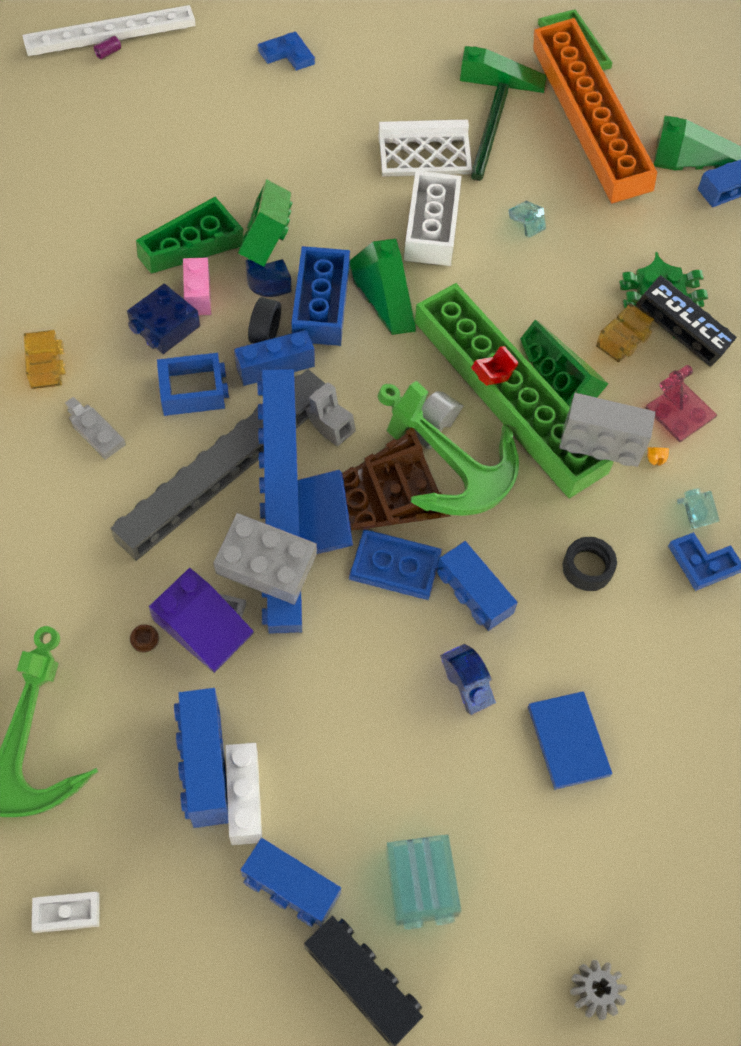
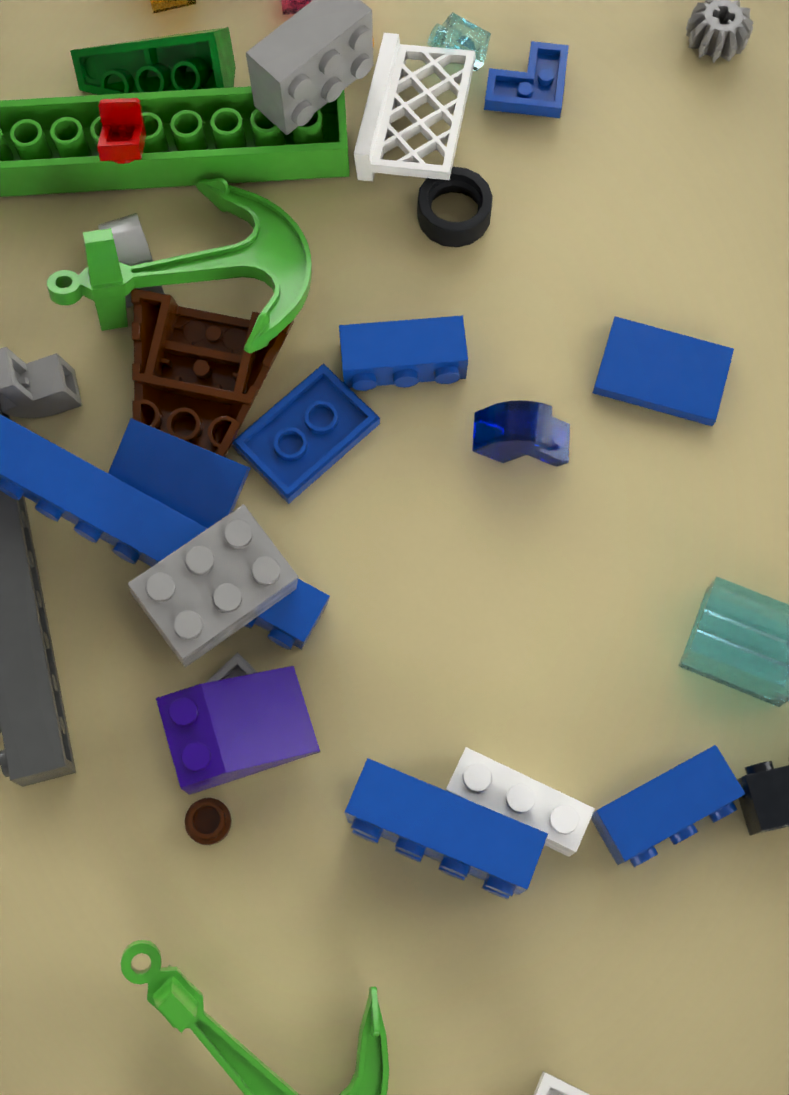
camera: 55 degrees left, 10 degrees up
(619, 489) = (381, 110): none -> white fence

